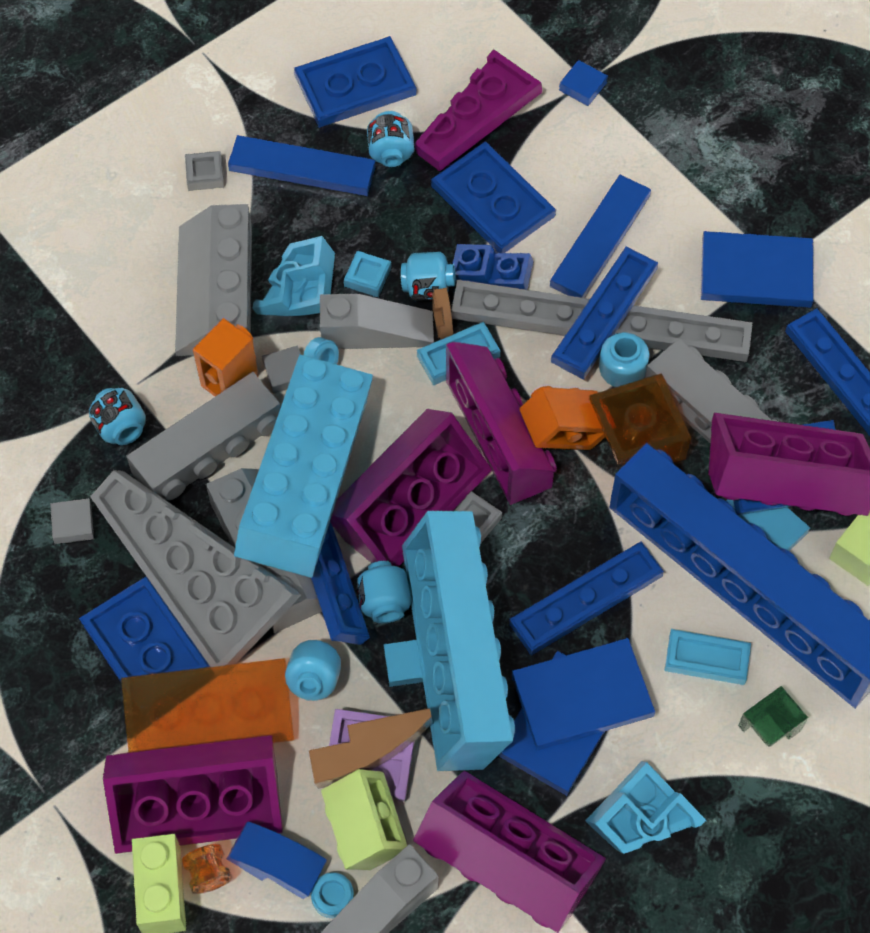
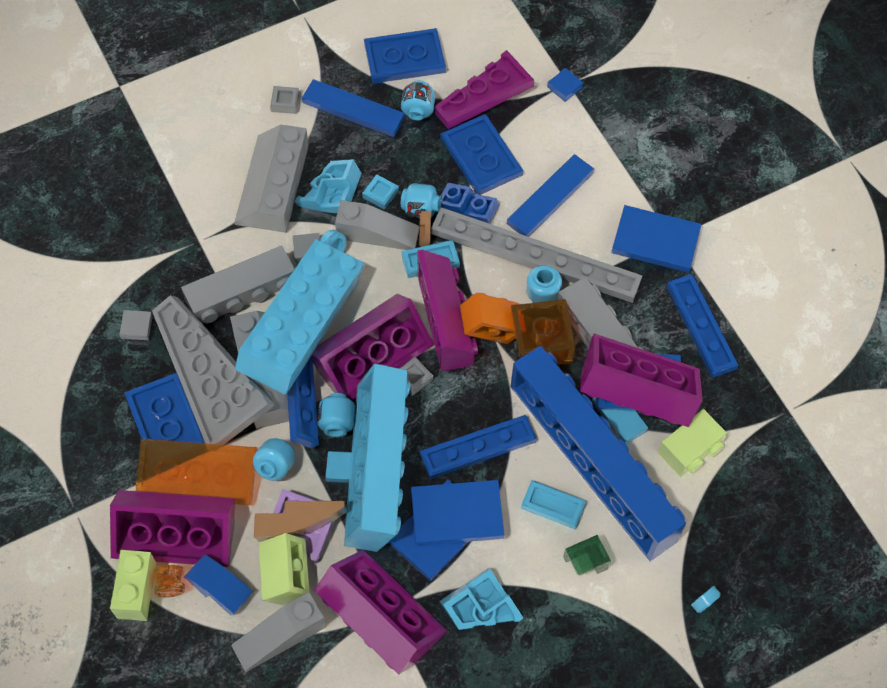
camera: 10 degrees right, 0 degrees up
(117, 416) = (183, 258): medium azure head -> none
(224, 357) = (264, 231): orange brick -> none
(331, 894) = (250, 615): medium azure tile -> none
(604, 312) = (538, 248): blue tile -> none

